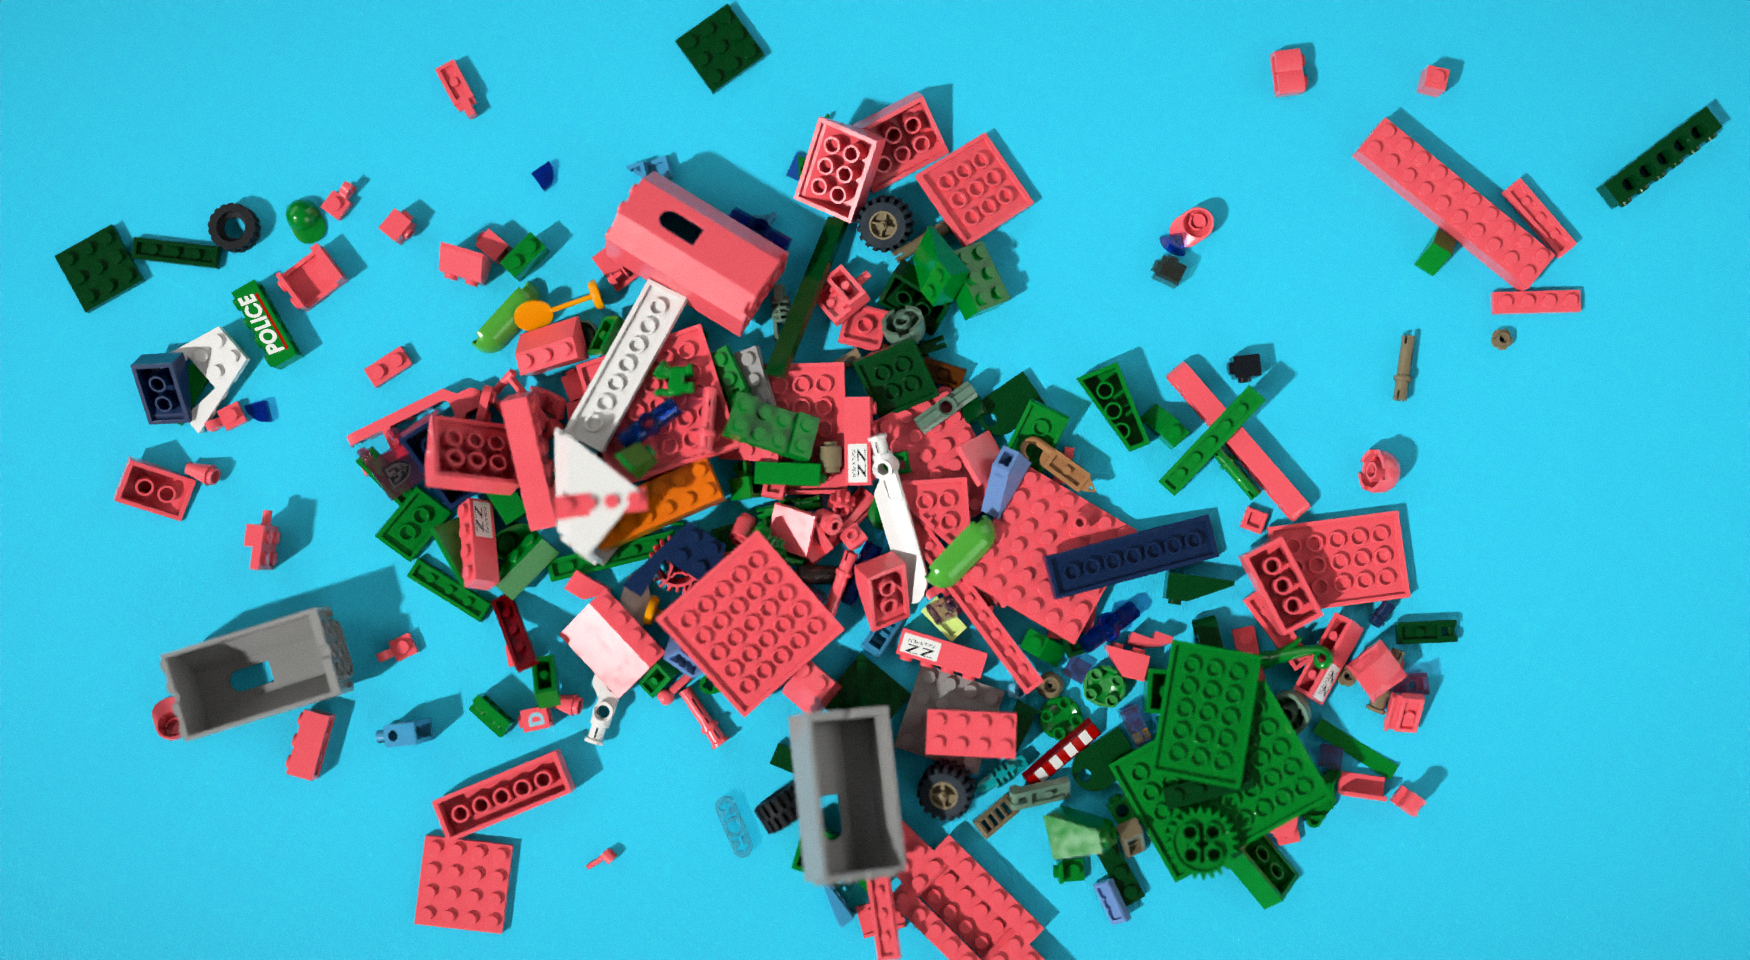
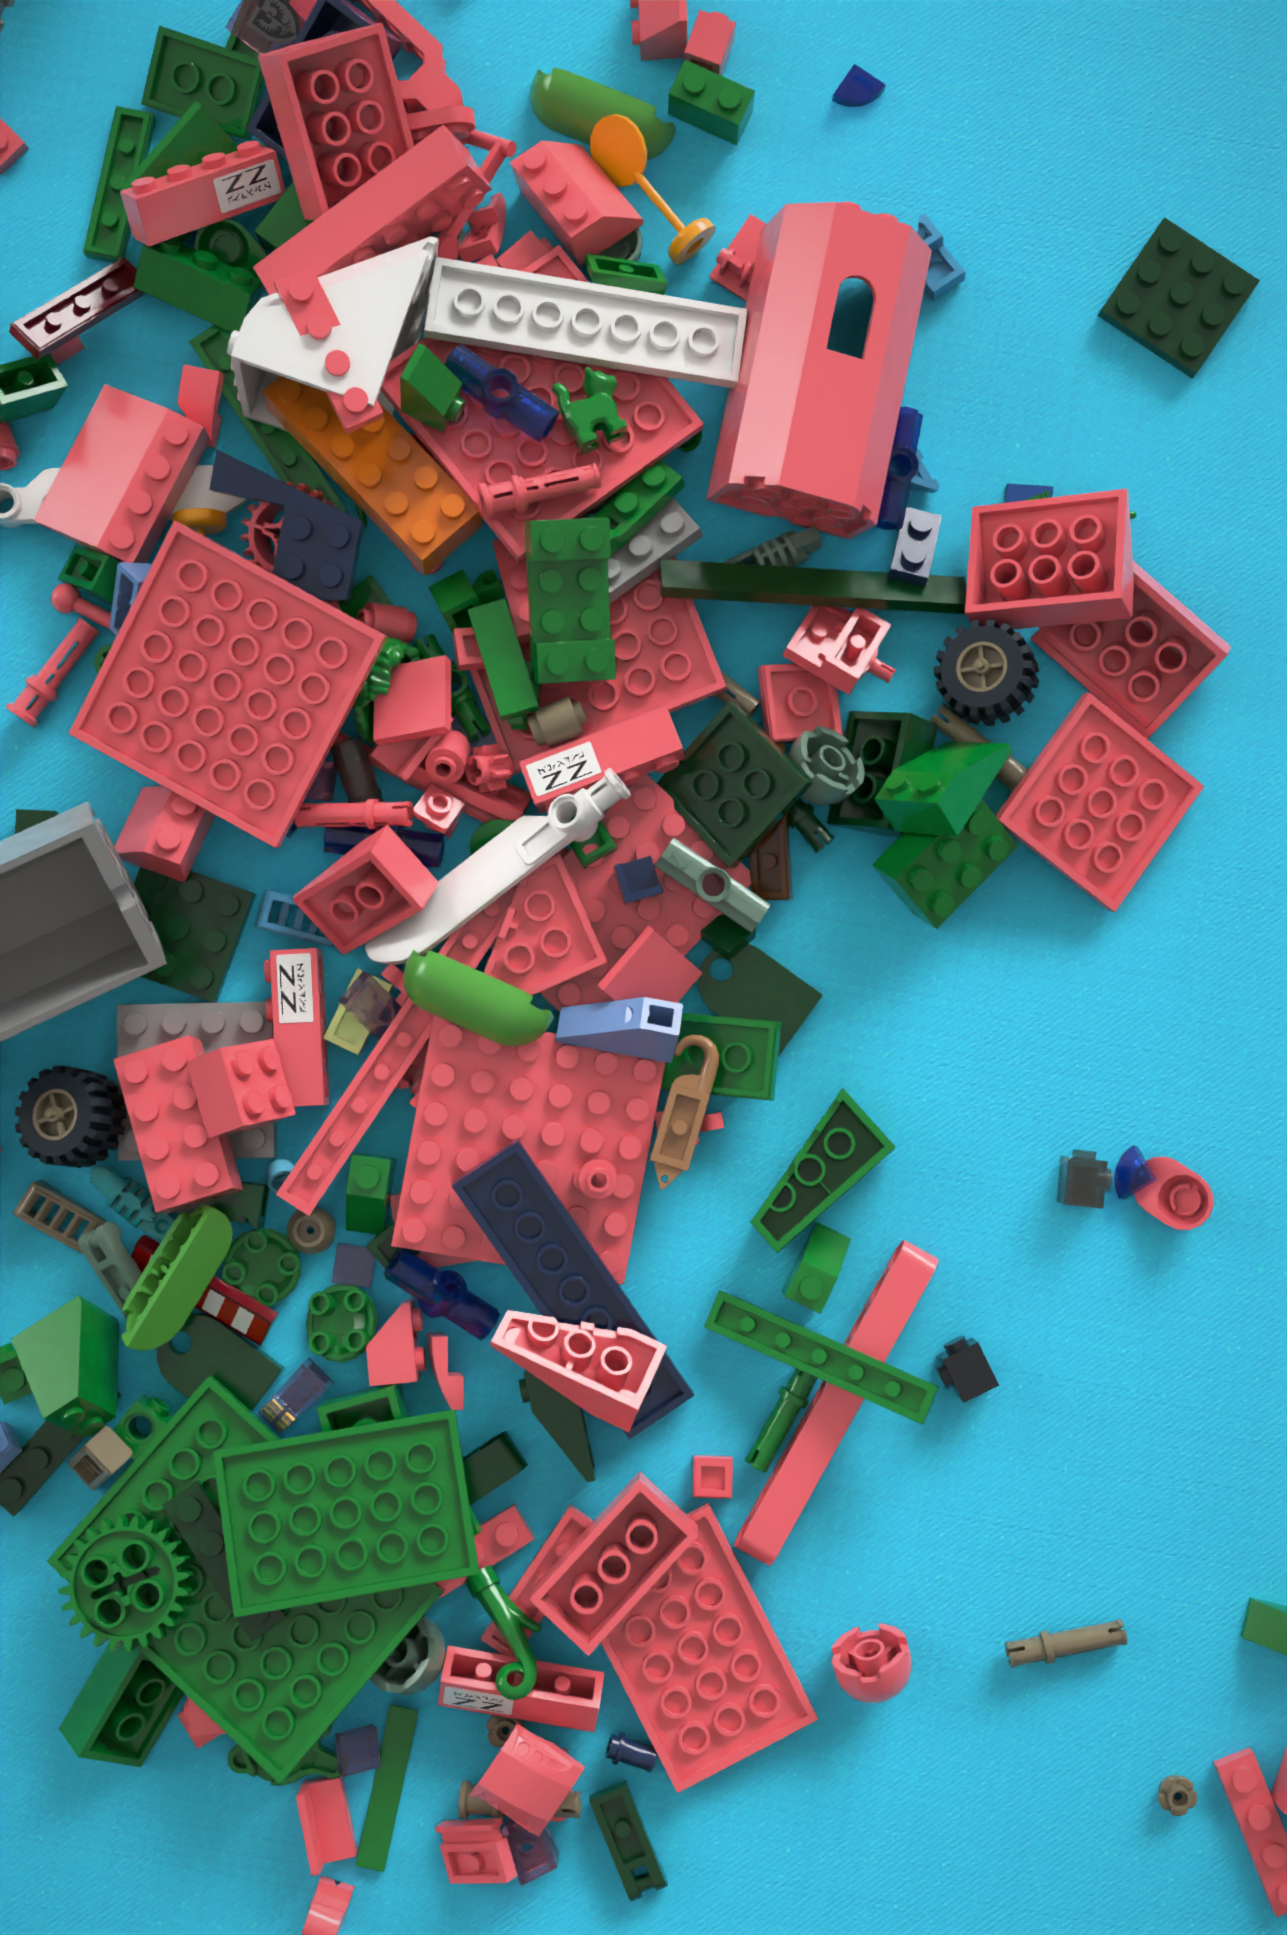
camera: 70 degrees right, 0 degrees up
(804, 236) = (915, 547): none -> plate
(929, 446) = (637, 880): none -> dark blue panel
(965, 692) = (240, 1088): none -> coral brick
(1051, 762) = (176, 1277): none -> bright green brick
(1176, 560) = (588, 1365): none -> coral wedge

